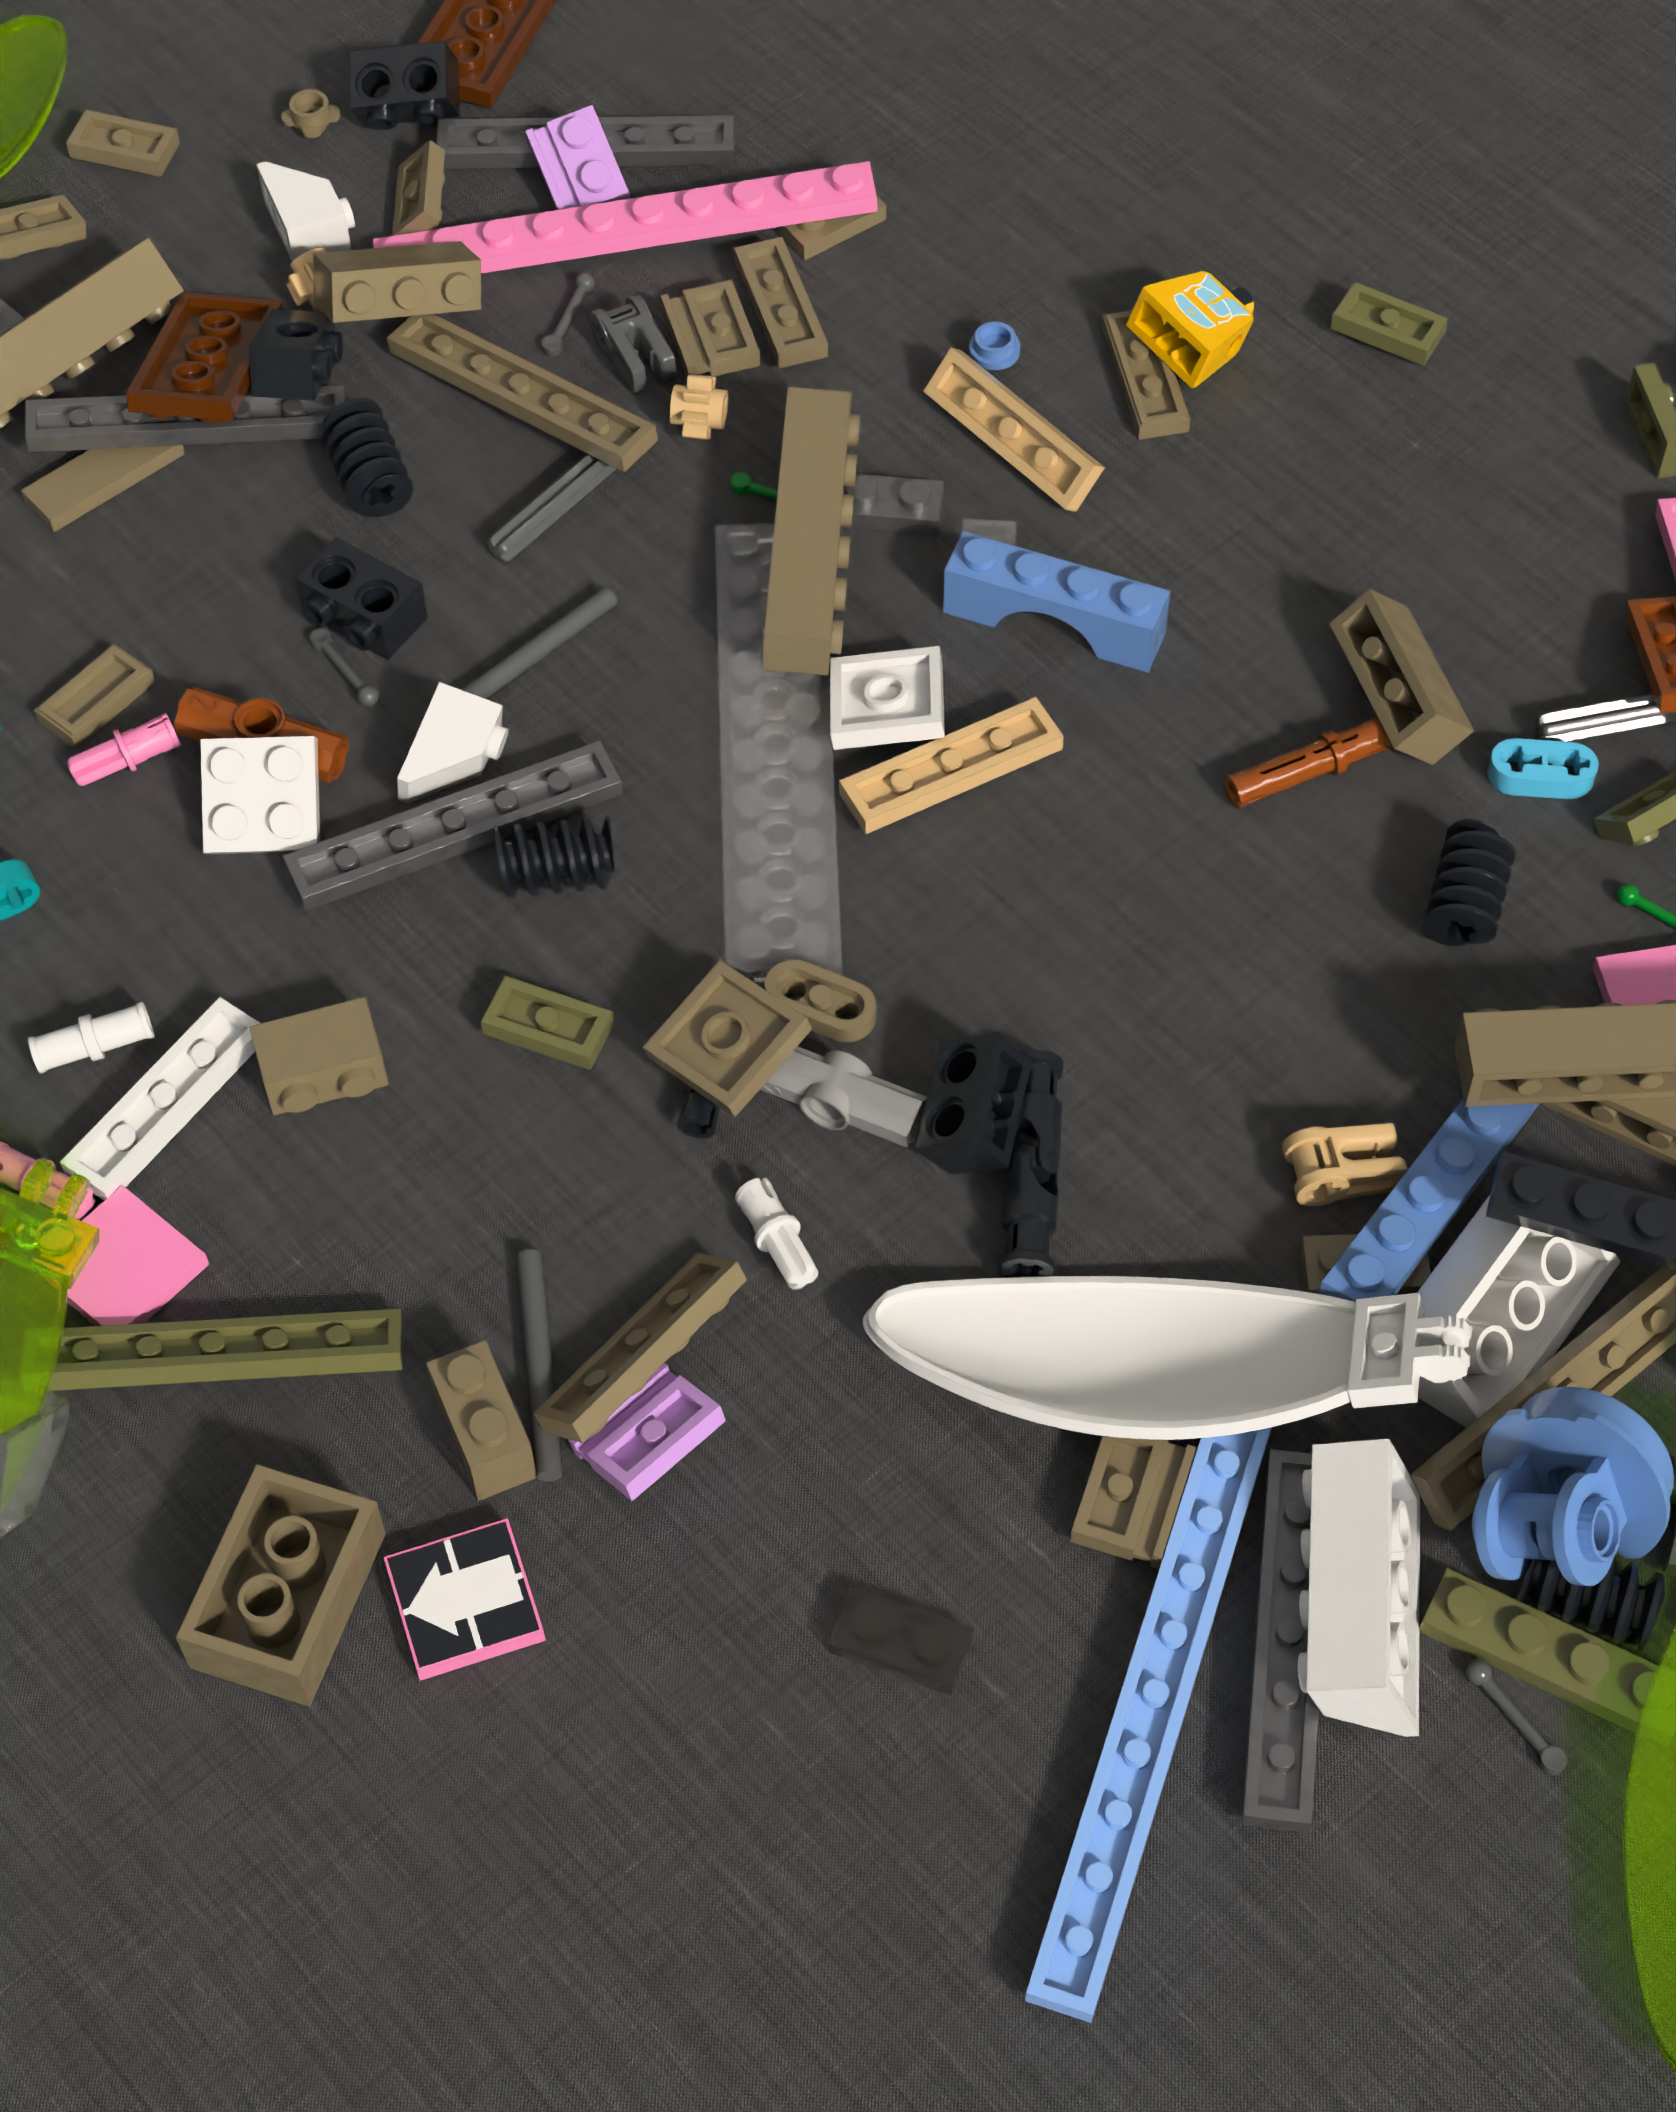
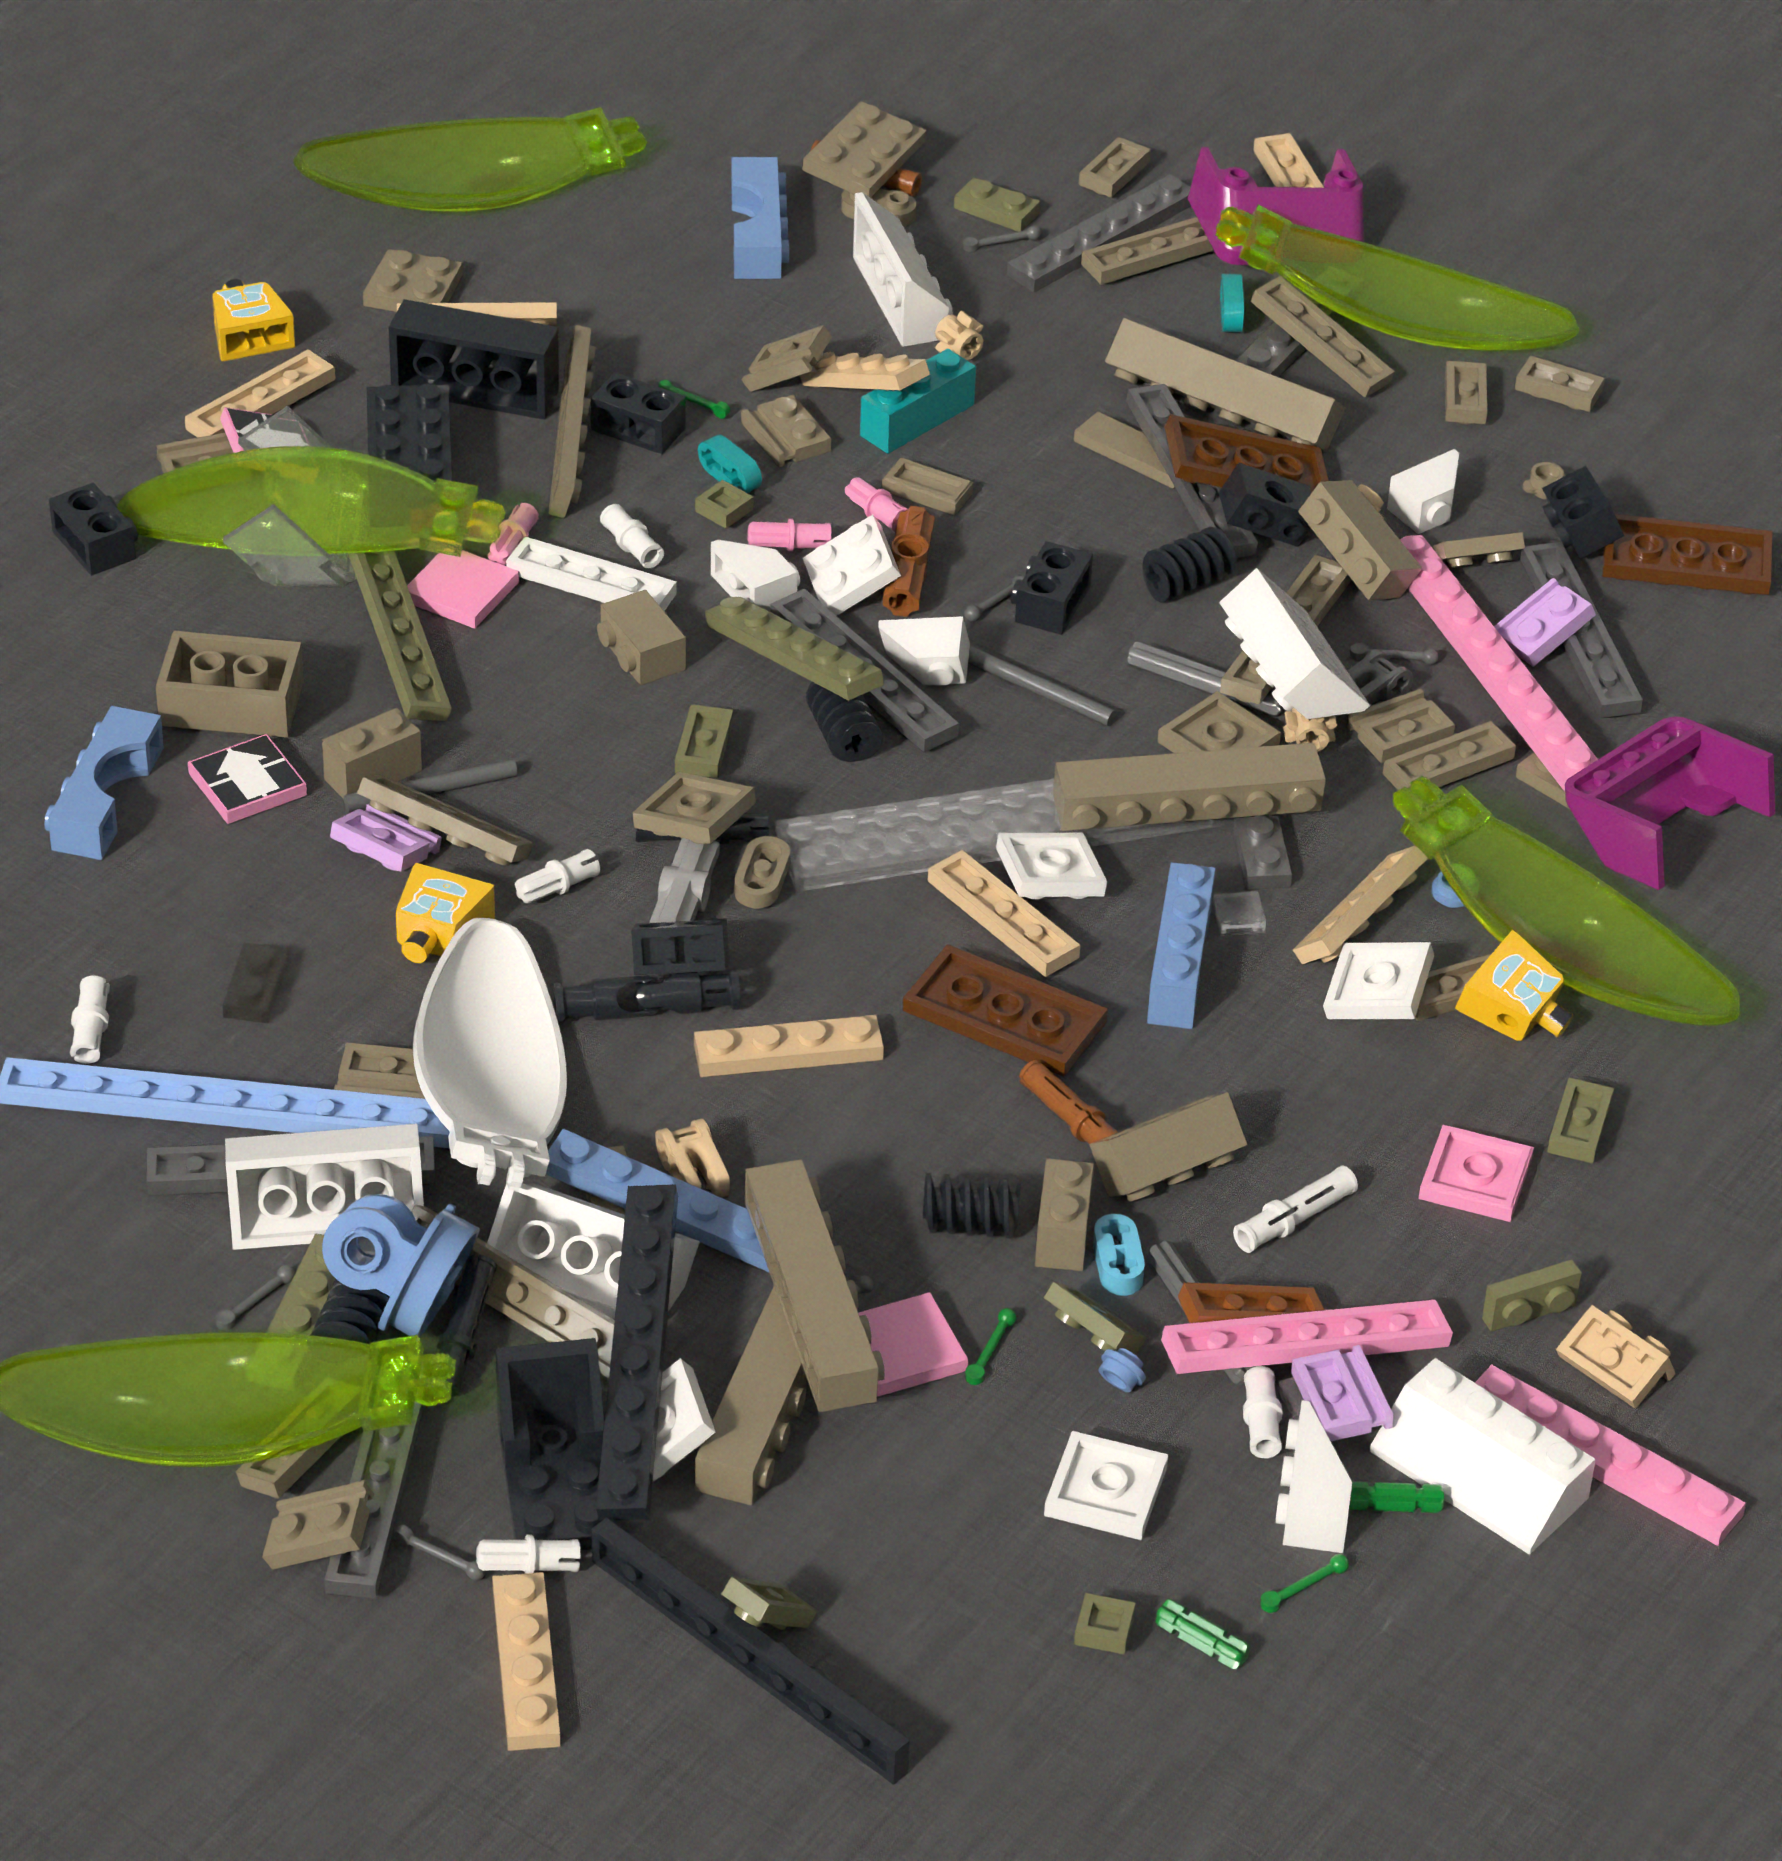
camera: 75 degrees right, 15 degrees down
(62, 919) = (724, 504): none -> olive plate
(140, 60) = (1559, 383): none -> dark tan plate
(154, 856) = (788, 534): none -> bright pink axle
(233, 910) = (753, 572): none -> white slope
(428, 878) = (794, 648): none -> olive plate
(509, 1830) = (120, 749): none -> medium blue arch
(610, 375) = (1290, 650): none -> white slope
(684, 497) = (1216, 725): none -> dark tan plate
(827, 1384) = (436, 907): none -> yellow torso
(877, 100) = (1654, 777): none -> magenta windscreen
(950, 1870) = (90, 1019): none -> white pin
(1086, 253) = (1563, 911): none -> clear neon green windscreen
(1123, 796) = (1005, 1009): none -> reddish brown plate
(1137, 1033) = (788, 1046): none -> tan plate
(1154, 436) = (1379, 980): none -> white plate
(1446, 431) = (1476, 1173): none -> bright pink tile
(1497, 791) = (1064, 1214): none -> dark tan brick
(1505, 605) = (1258, 1231): none -> white pin

